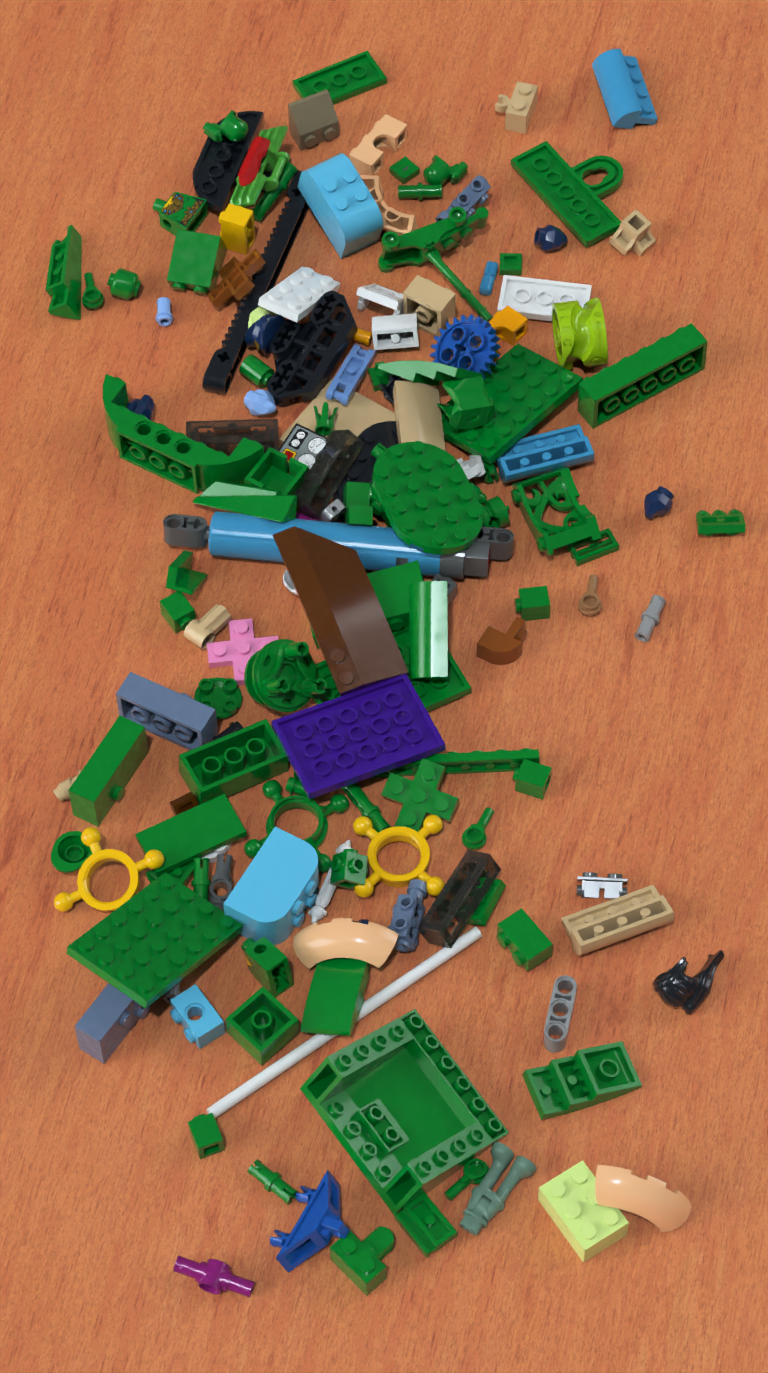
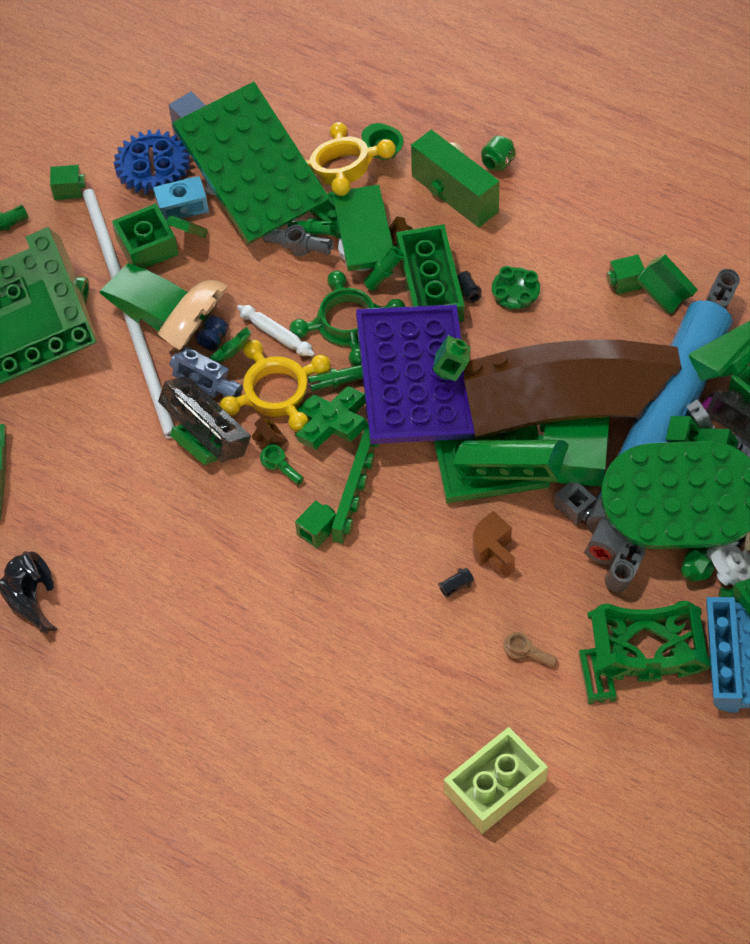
camera: 110 degrees right, 0 degrees up
(59, 749) = (498, 153): none -> green head
(145, 1044) = (134, 162): none -> blue gear
(166, 712) = (501, 233): sand blue brick -> none
(204, 630) = (599, 291): tan piece -> none
(238, 649) = (565, 319): bright pink plate -> none
(238, 989) = (187, 226): none -> green tile
(239, 799) = (384, 268): none -> green pin
(262, 959) = (203, 254): green torso -> none
(275, 888) = (276, 274): medium azure brick -> none
(283, 676) = (503, 320): green piece -> none
(346, 695) = (451, 358): none -> green brick
(348, 869) = (271, 334): green brick -> none
(370, 902) = (232, 346): none -> green dish
(450, 845) = (270, 432): none -> reddish brown tile
(495, 513) = (663, 570): green wheel -> none
(524, 940) = (137, 461): green brick -> none
(533, 603) = (534, 587): green brick -> none
(547, 661) = (456, 582): none -> black pin
(560, 1003) = (43, 463): light grey beam -> none
(591, 884) = (175, 546): hinge -> none
(617, 920) = (122, 549): tan brick -> none
(650, 618) = (478, 699): light grey pin -> none
(658, 502) = (634, 757): dark blue rock -> none
(719, 582) = (495, 780): none -> yellowish green brick
(720, 522) = (586, 818): green plate -> none

